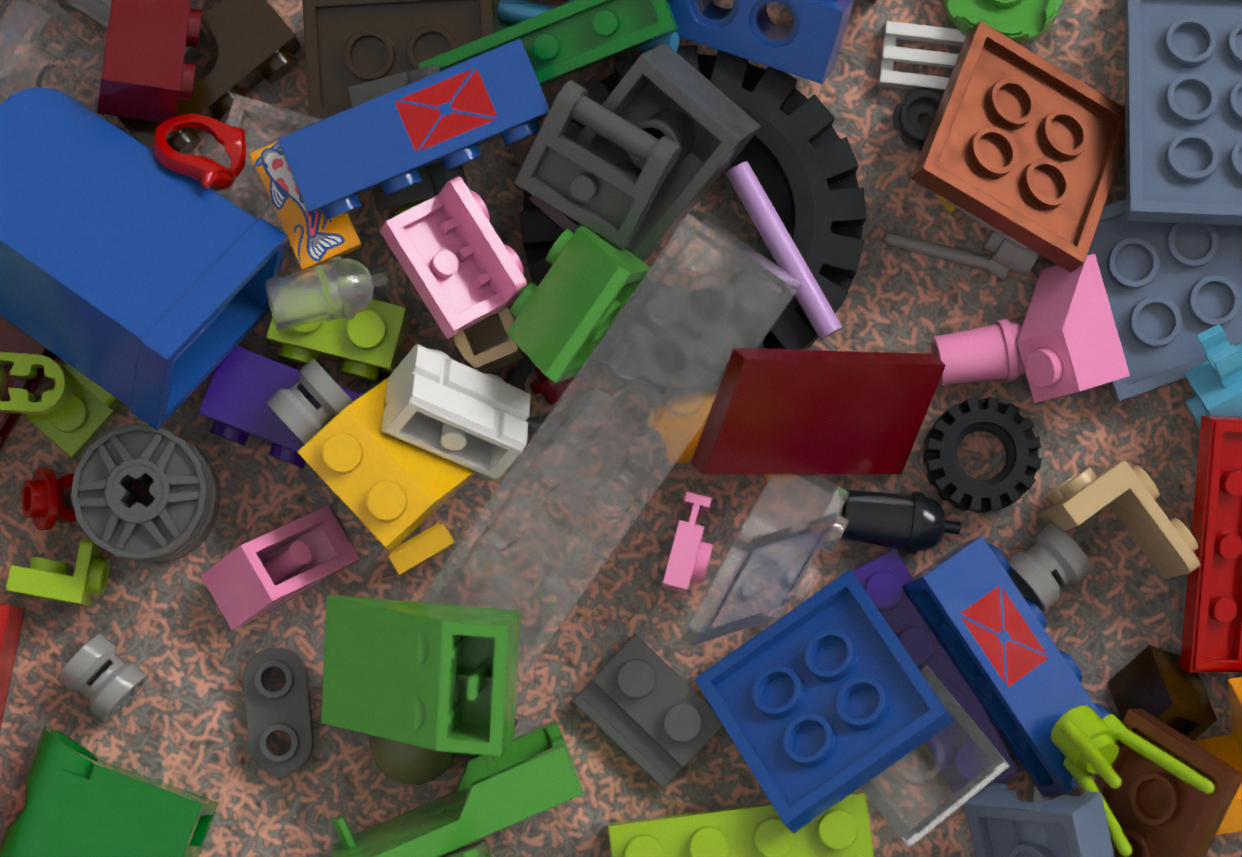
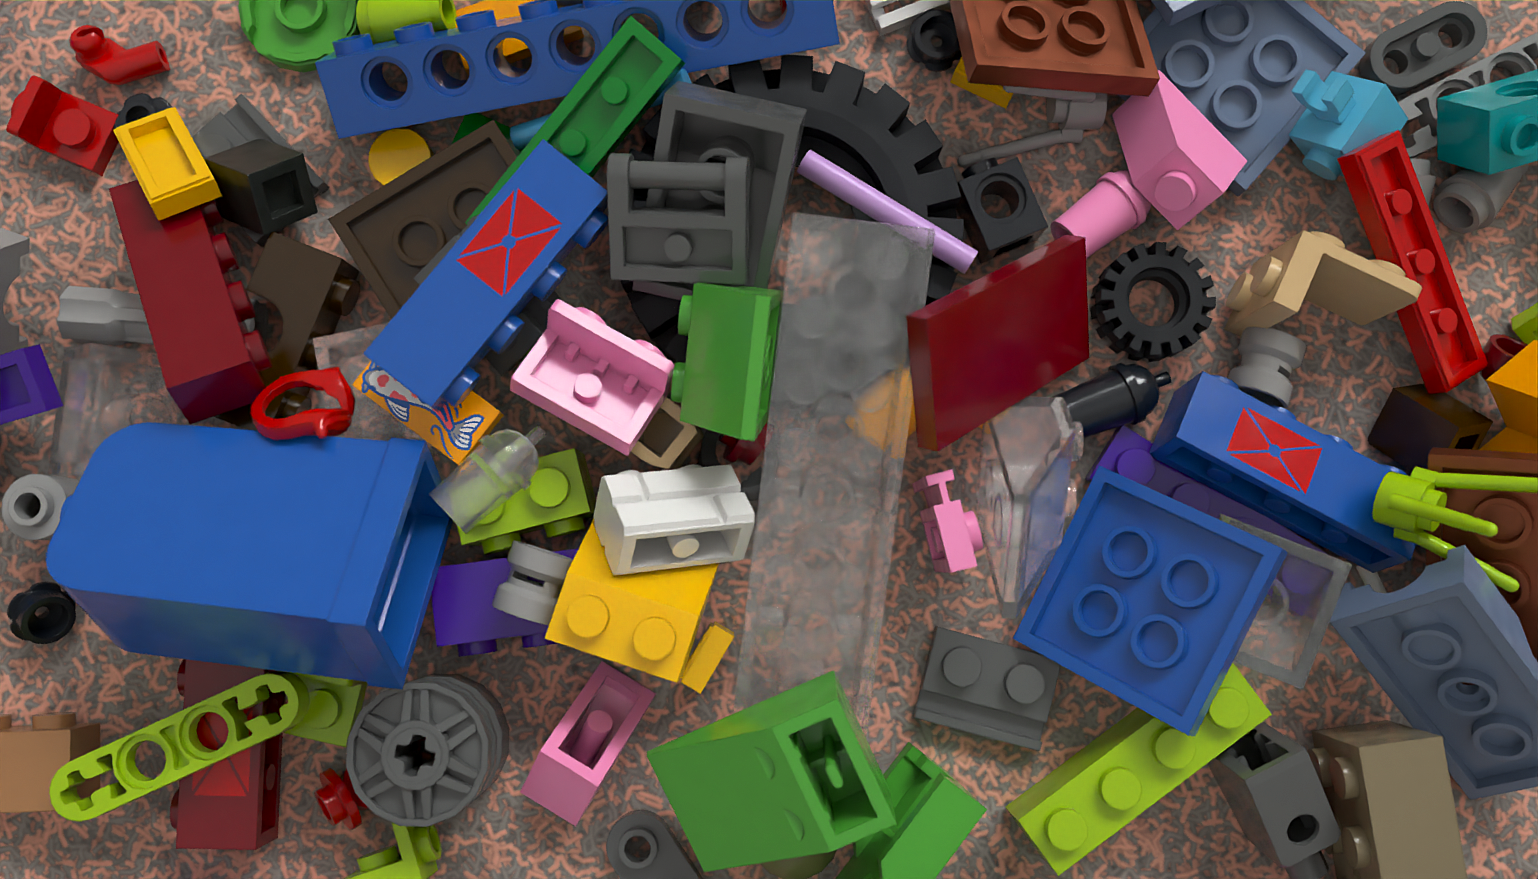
camera: 30 degrees left, 0 degrees up
(889, 326) = (999, 235): none -> black brick

